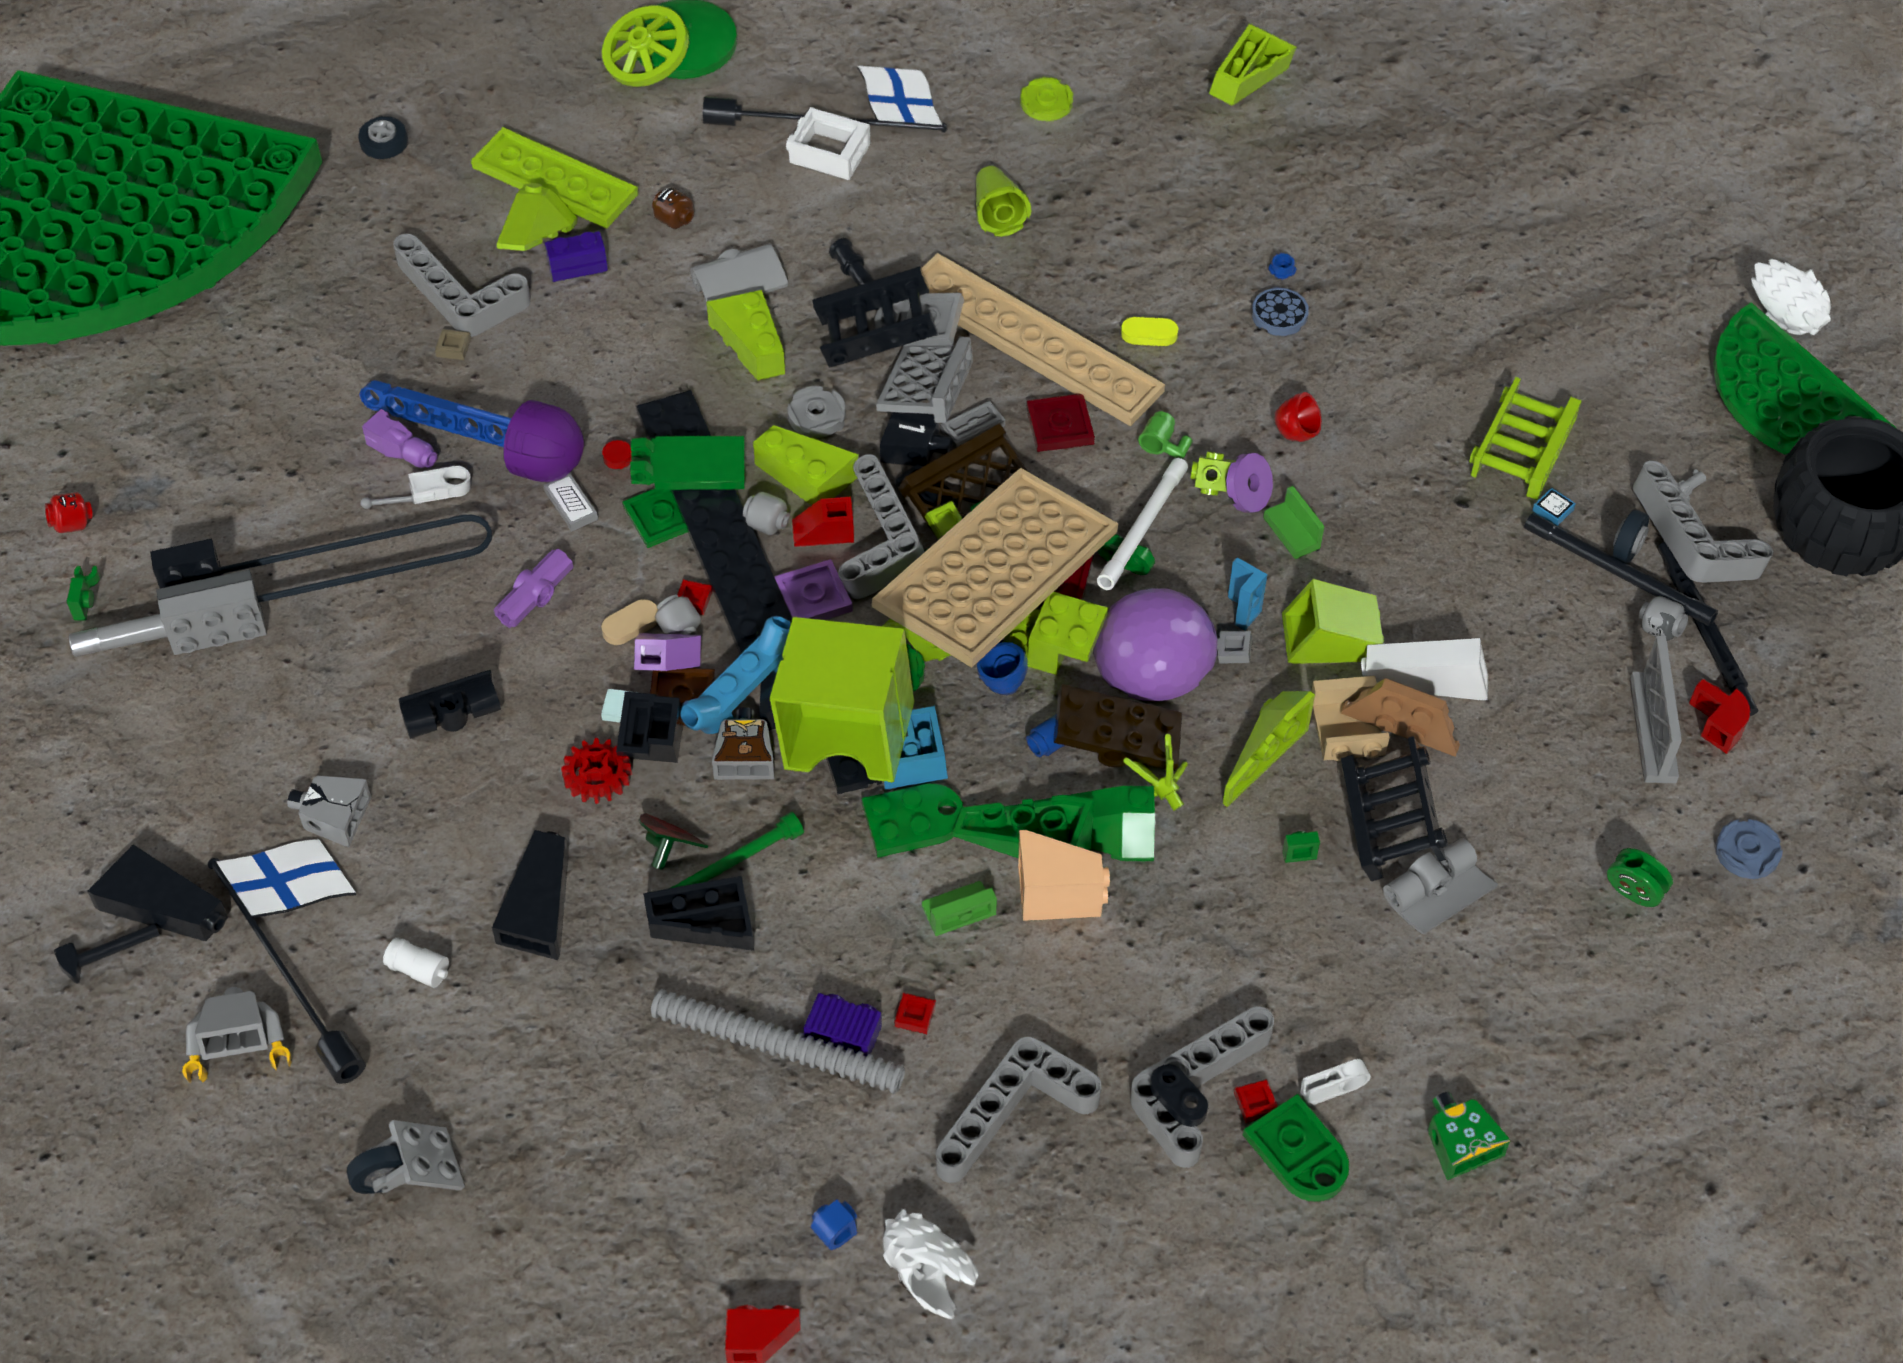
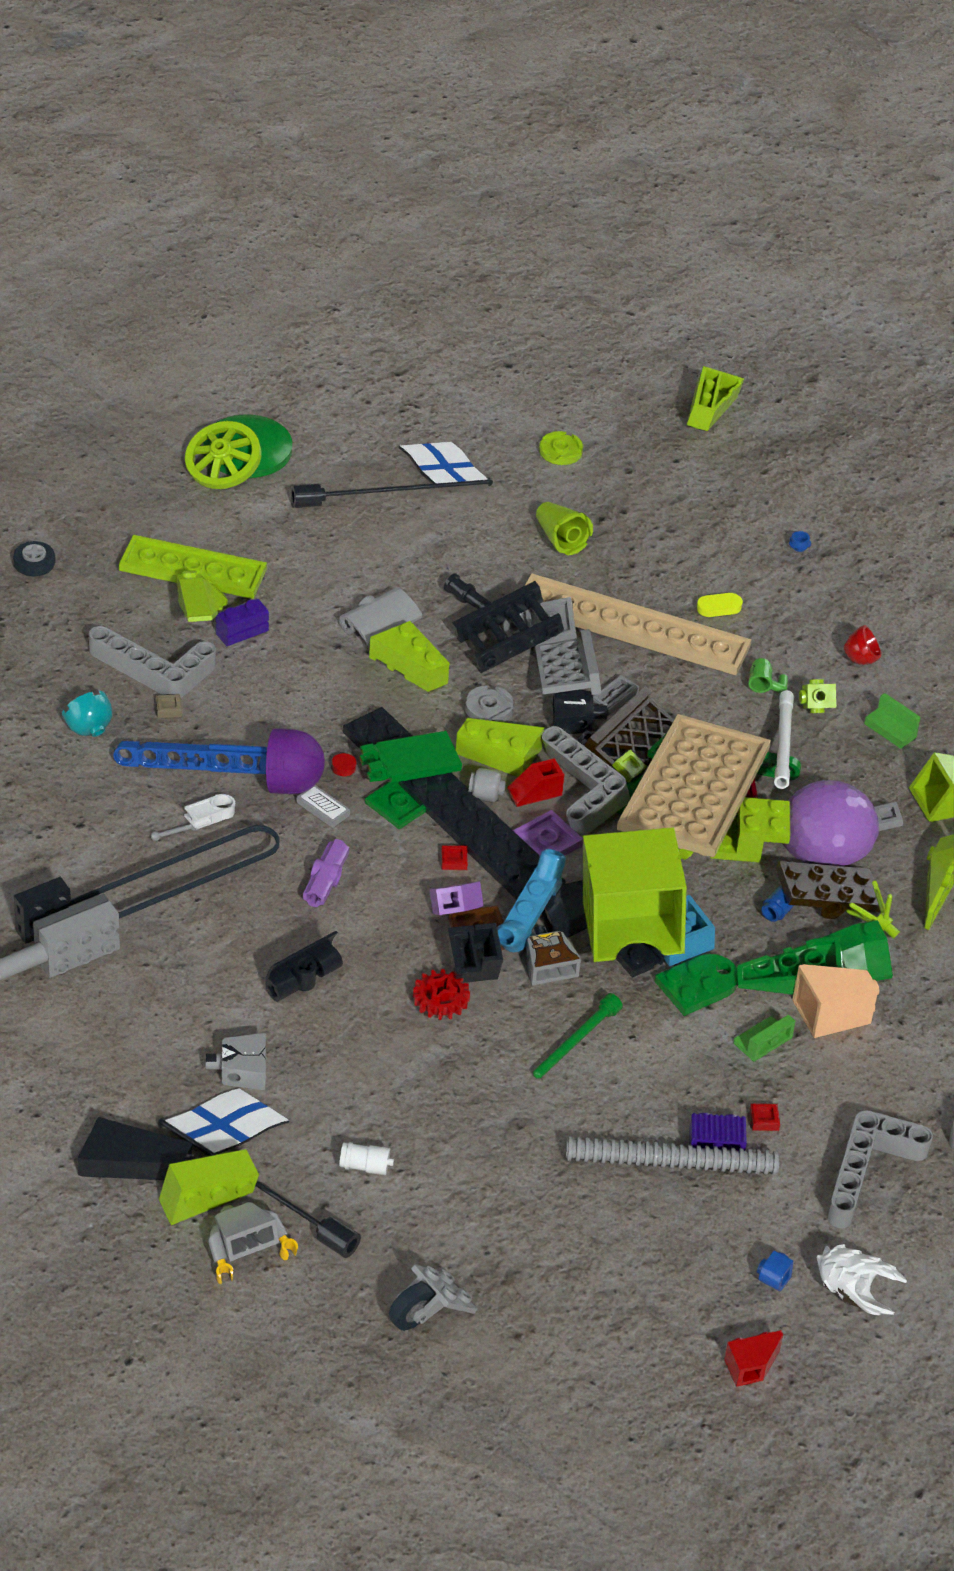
camera: 20 degrees left, 10 degrees down
(71, 961) = (81, 1217): black piece -> none
(217, 956) = (206, 1184): none -> lime wedge
(352, 340) = (89, 714): none -> teal cylinder
(397, 441) = (160, 784): medium lavender piece -> none
(536, 899) = (440, 1097): black slope -> none
(613, 705) = (435, 946): light aqua tile -> none
(629, 622) = (413, 884): tan tile -> none
(662, 836) = (519, 1036): shield -> none
(673, 208) = (302, 574): reddish brown head -> none
(677, 616) = (452, 871): light grey head -> none
(702, 914) = (576, 1078): black wedge -> none
(833, 126) = (406, 494): white window -> none
(1003, 668) = (726, 863): blue hat -> none
(1060, 422) = (681, 682): dark red tile -> none
(1247, 590) = (881, 772): dark azure panel -> none
(1261, 482) = (849, 697): medium lavender tile -> none
(1280, 311) = (812, 574): sand blue tile -> none

